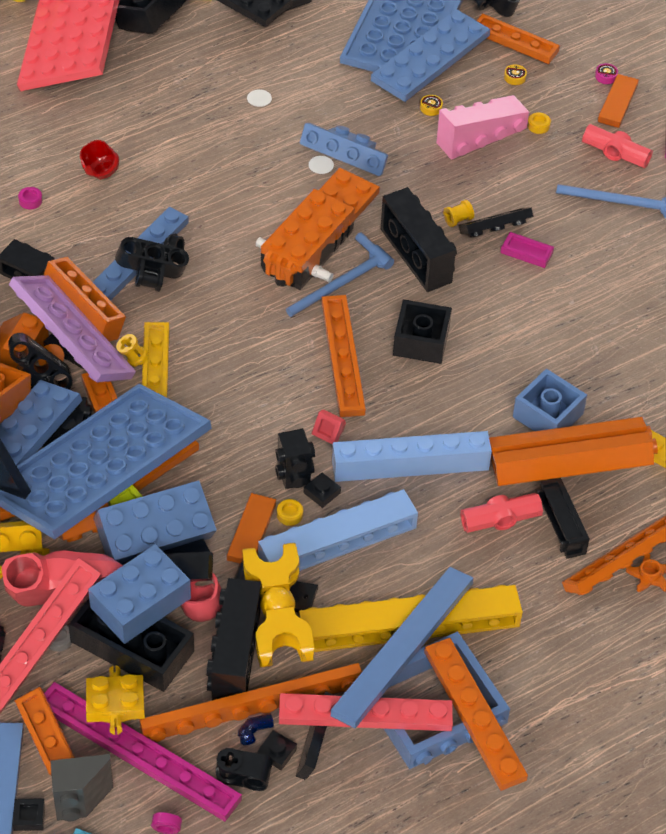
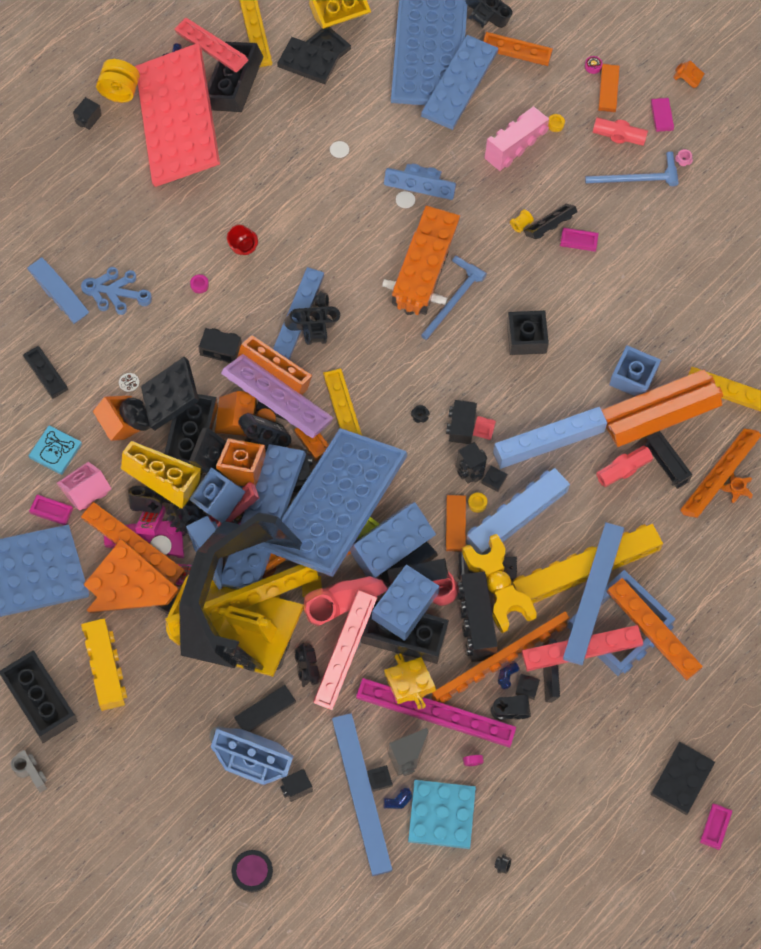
camera: 15 degrees left, 15 degrees up
(44, 727) = (370, 715): orange tile -> none
(132, 350) = (325, 398): yellow bush -> none
(251, 394) = (420, 409): none -> black plate
(301, 410) = (462, 423): none -> black brick
(343, 356) = (475, 365): orange plate -> none
(418, 239) = (501, 254): black brick -> none
(431, 105) = (471, 125): tile -> none
(515, 74) = (525, 82): tile -> none

